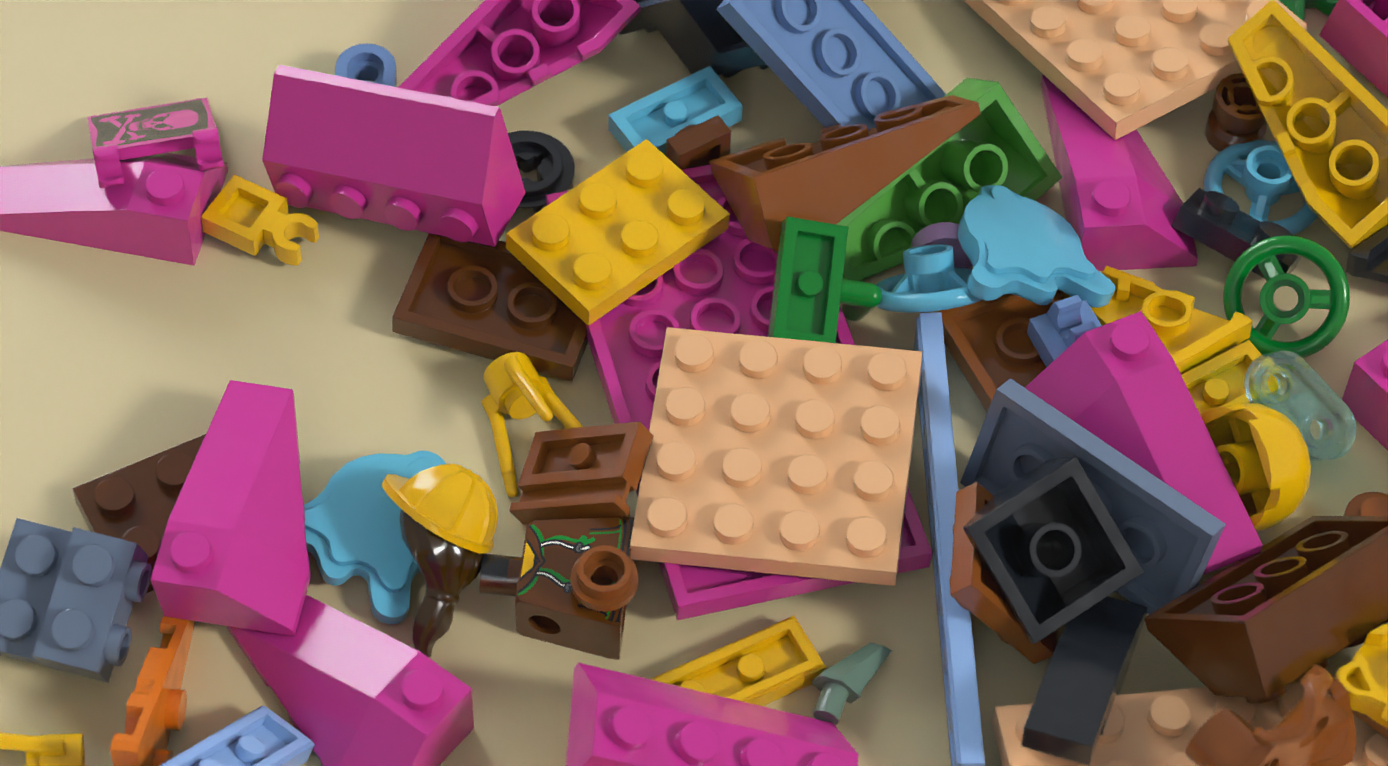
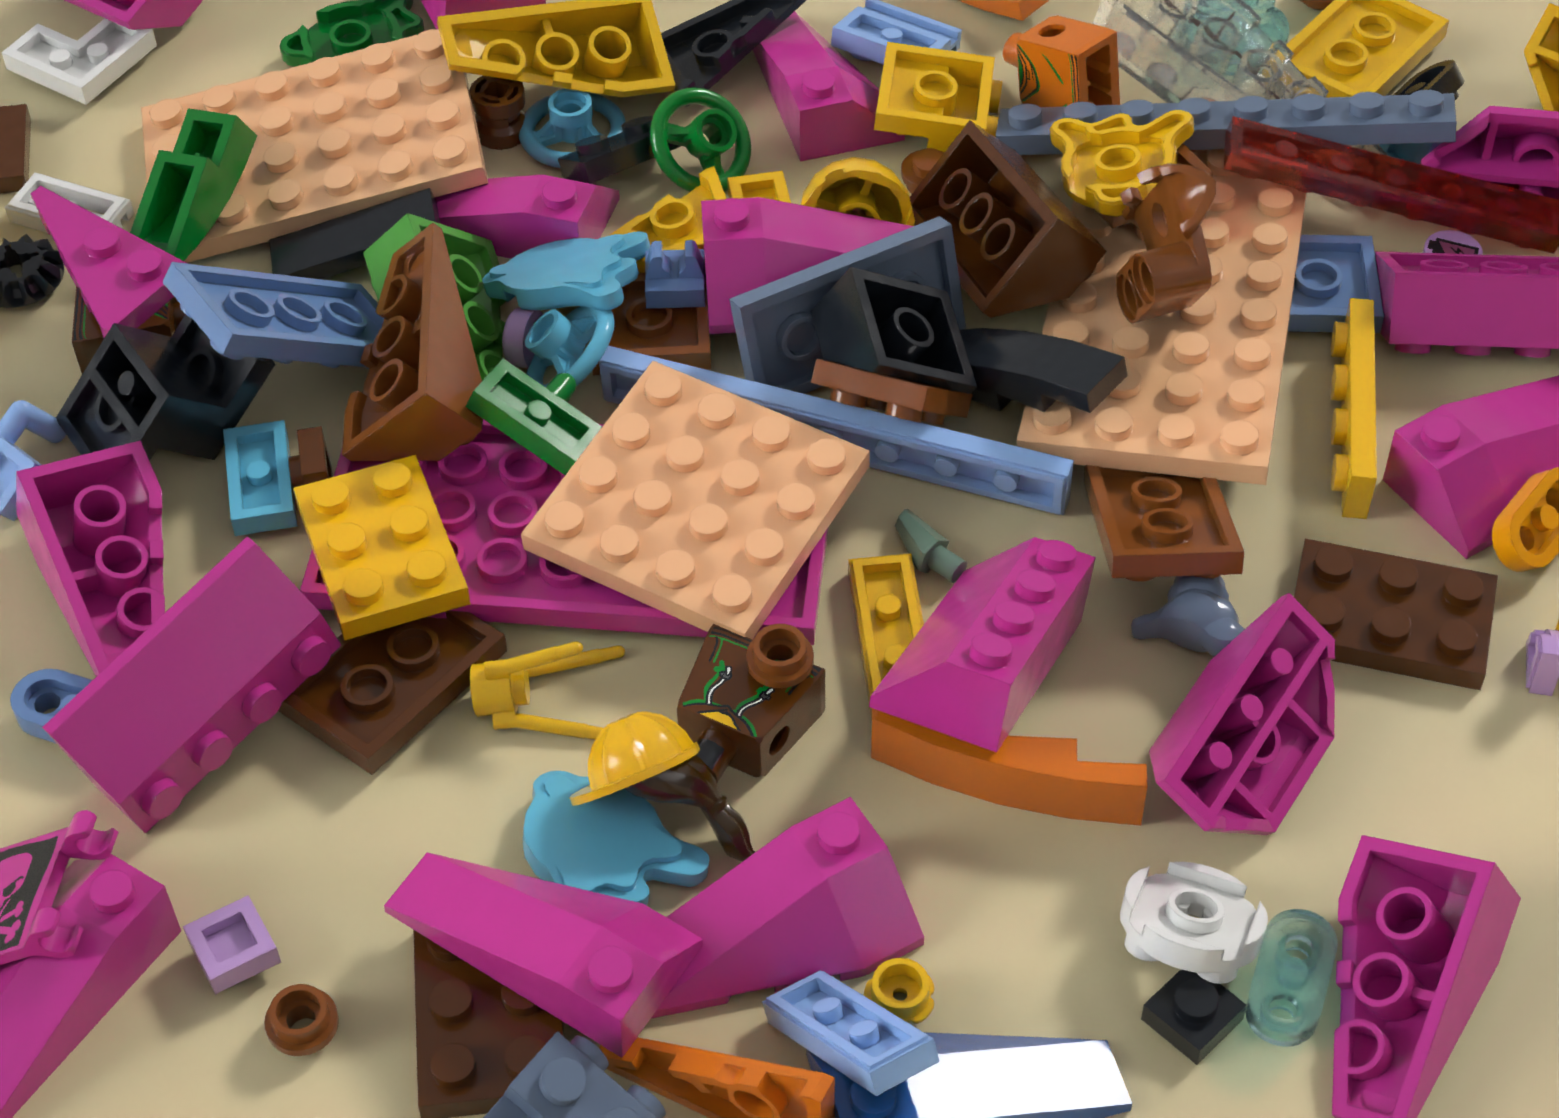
camera: 65 degrees left, 5 degrees down
(124, 364) = (298, 1003): none -> dark orange plate
(179, 299) = (232, 944): none -> lavender plate
(254, 216) = (175, 849): yellow plate -> none
(582, 472) = (635, 653): dark orange plate -> none
(981, 52) = (340, 242): none -> black tile
(1303, 397) = (795, 160): clear light blue plate -> none

